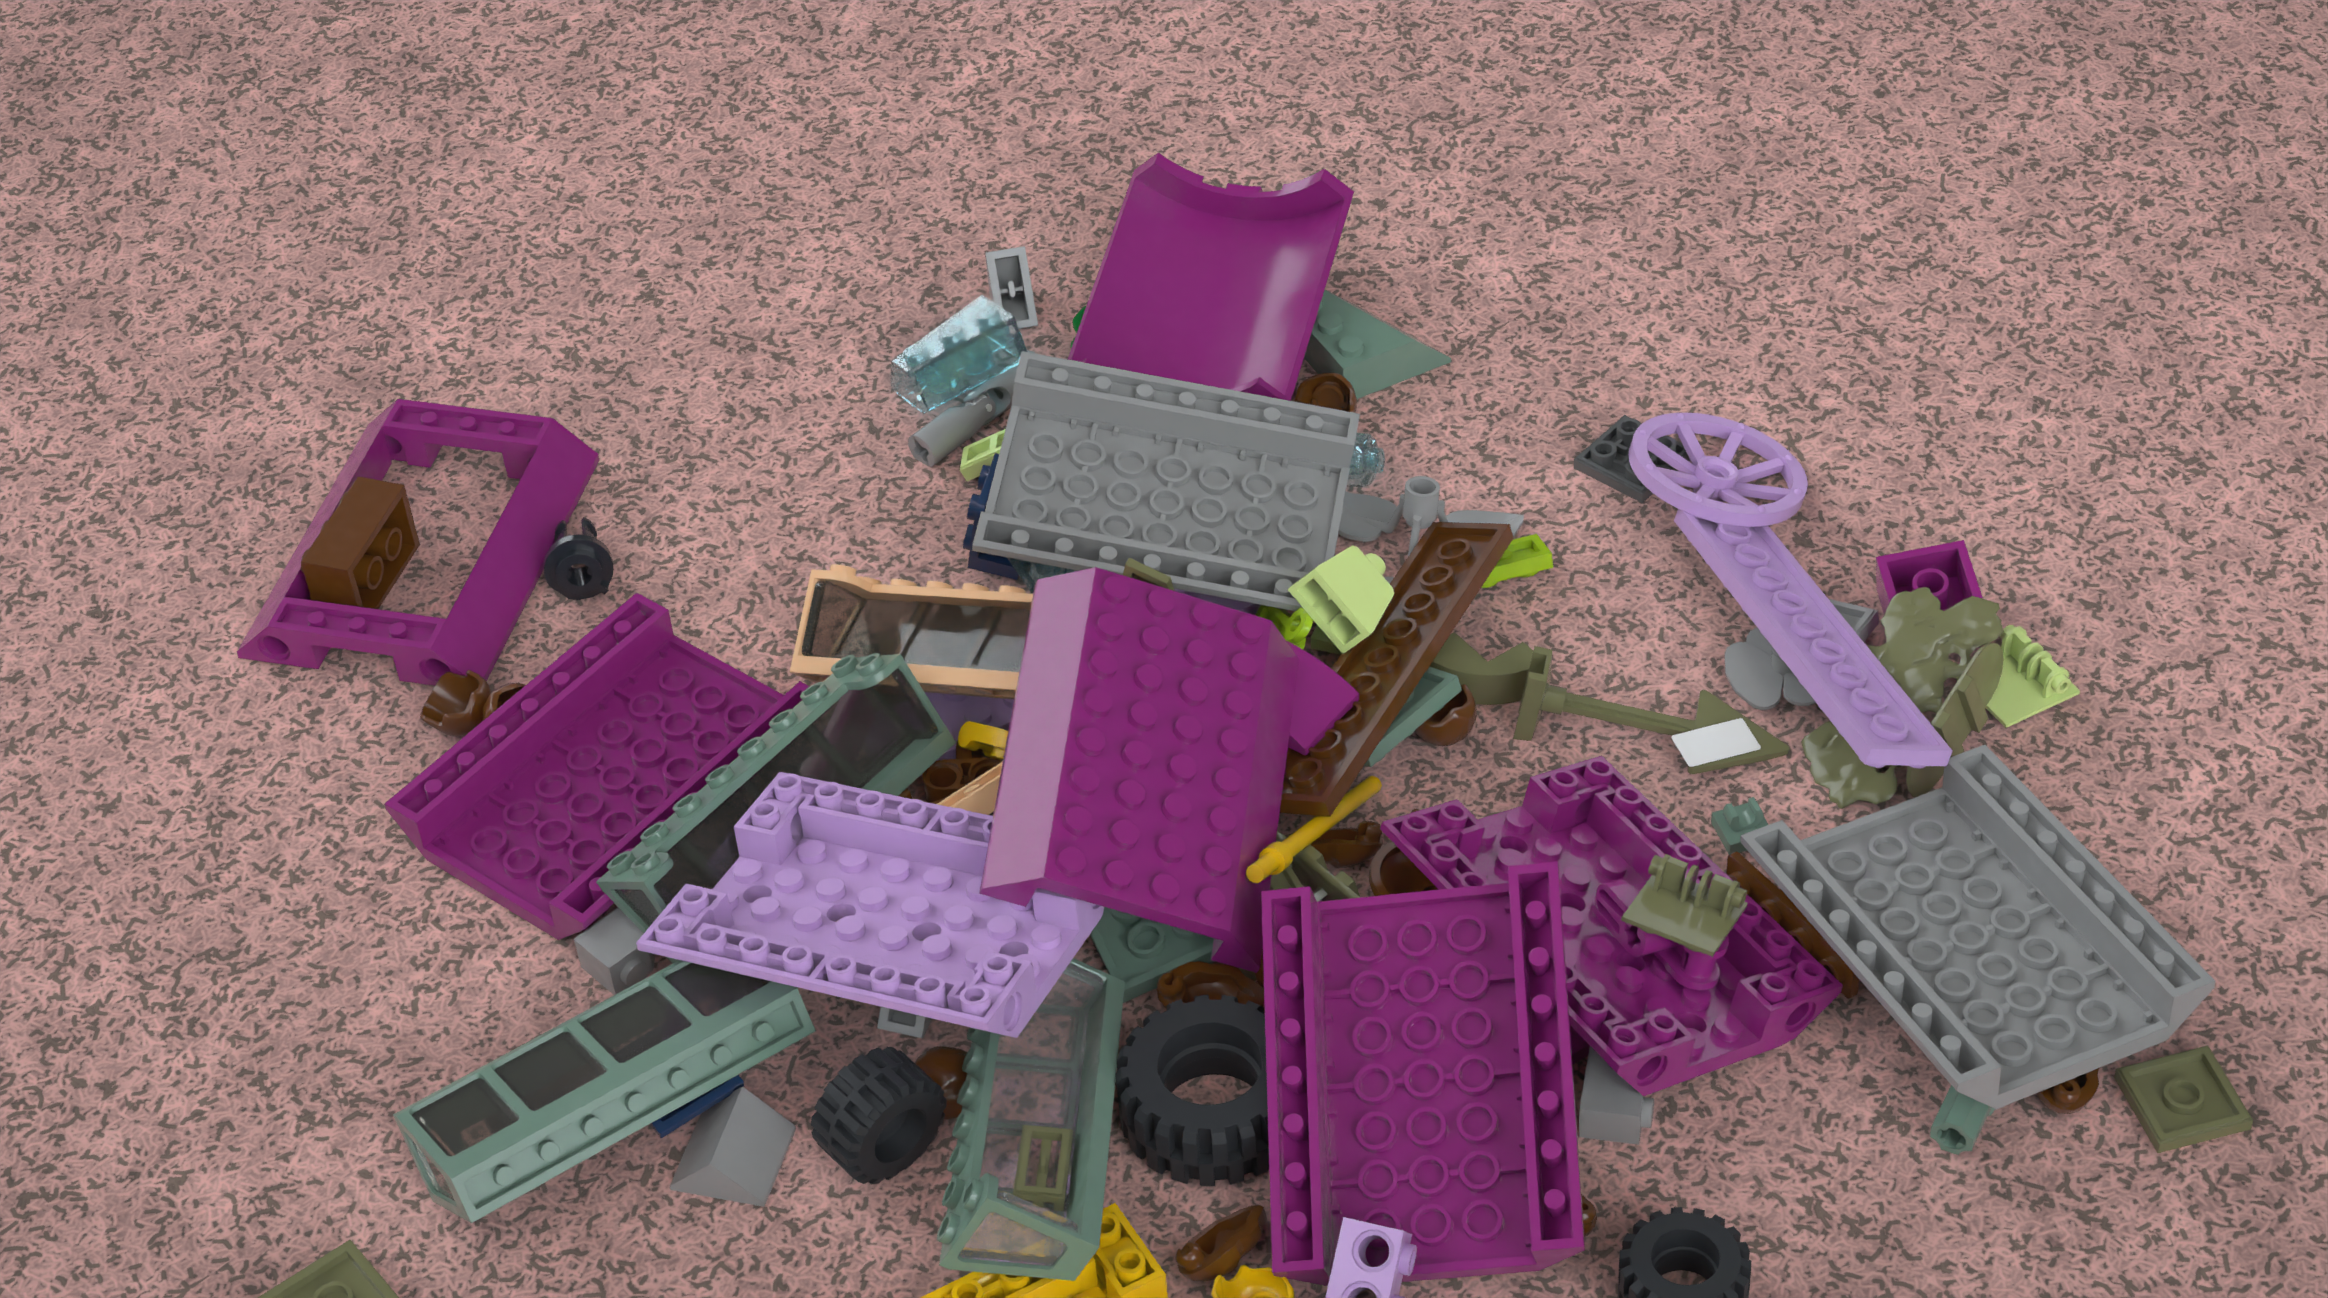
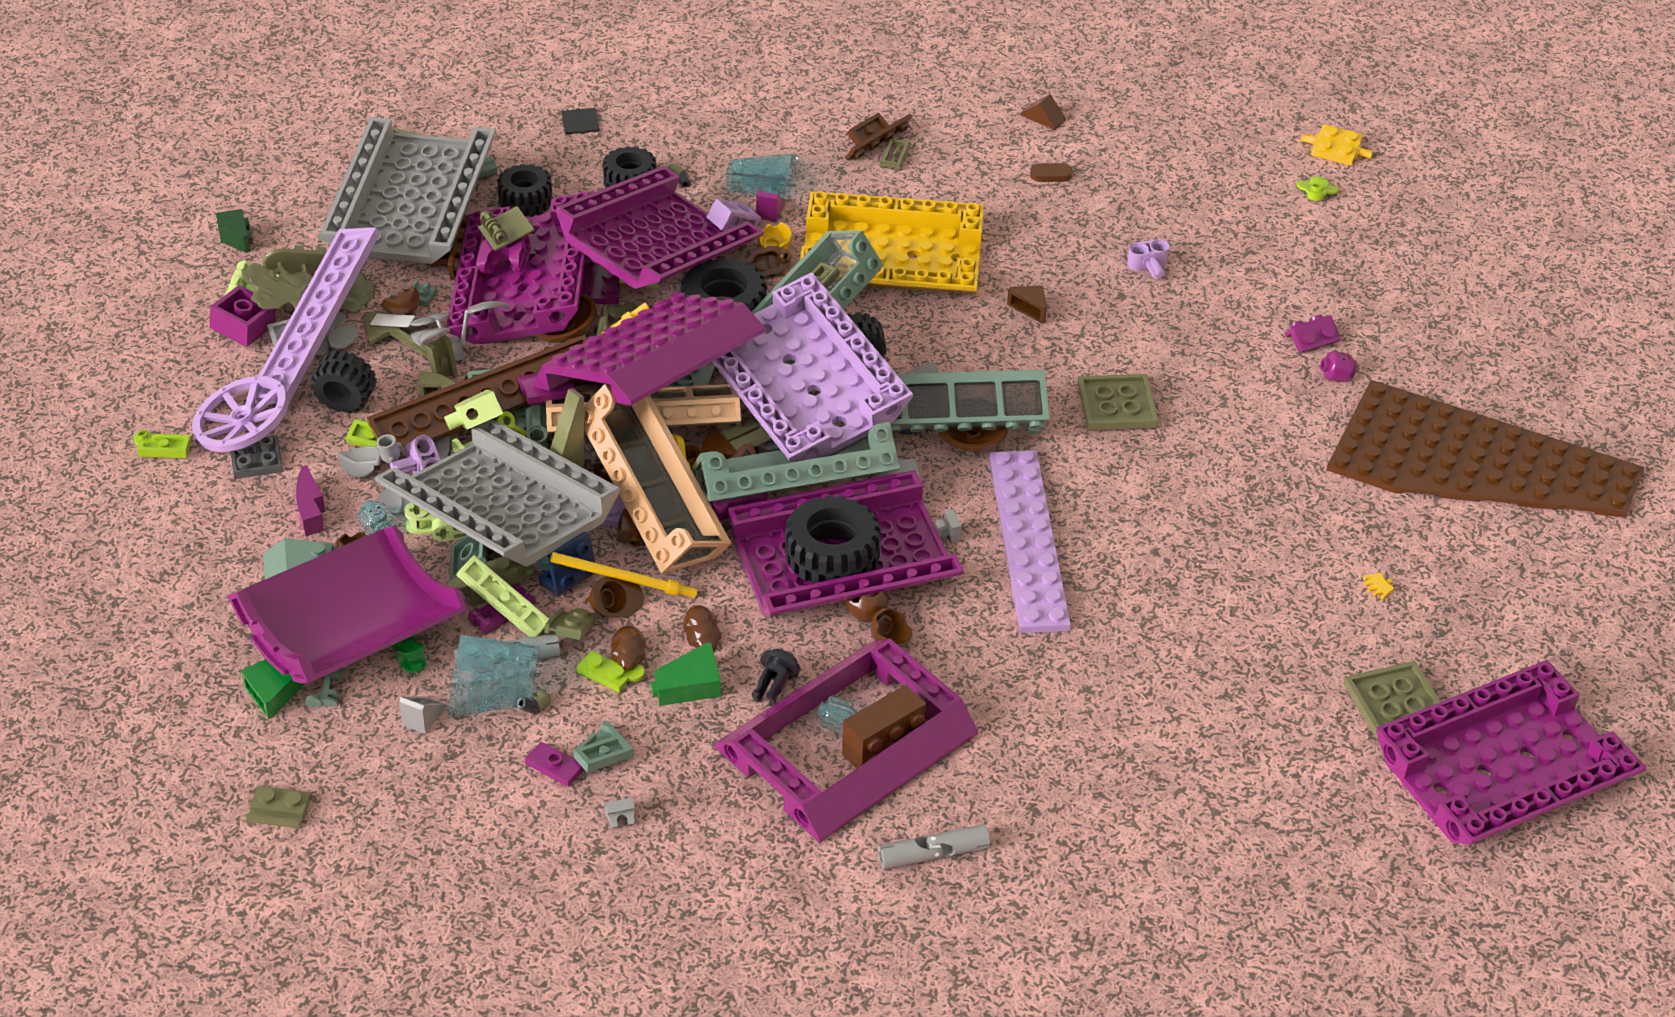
camera: 150 degrees left, 0 degrees up
(203, 490) = (912, 850): none -> light grey piece
(329, 970) = (1029, 542): none -> lavender plate
(450, 561) = (834, 712): none -> clear light blue head
(478, 911) = (949, 527): none -> light grey tile
(614, 693) = (832, 519): none -> black tyre
(652, 326) = (619, 808): none -> light grey tile
(698, 501) = (688, 678): none -> green slope
(736, 372) = (603, 749): none -> sand green wing
(745, 579) = (701, 627): none -> reddish brown arm
(788, 339) = (554, 764): none -> magenta plate
(821, 496) = (628, 647): none -> reddish brown arm
(823, 466) = (608, 671): none -> lime hinge
(876, 384) = (536, 705): none -> arm
(906, 532) = (619, 595): none -> reddish brown piece
(922, 509) = (670, 586): none -> yellow bar
(926, 473) = (571, 624): none -> olive plate
(1070, 143) = (278, 807): none -> olive plate
(1378, 532) = (415, 459): none -> lavender beam
(1469, 429) = (309, 503): none -> magenta slope
(1546, 753) = (421, 336): none -> light grey plant
(1624, 568) = (343, 381): none -> black tyre
(1739, 769) = (403, 304): none -> reddish brown hair
(1774, 393) = (162, 444): none -> lime hinge
(1820, 1140) = (525, 187): none -> black tyre
(2176, 738) = (234, 229): none -> dark green slope

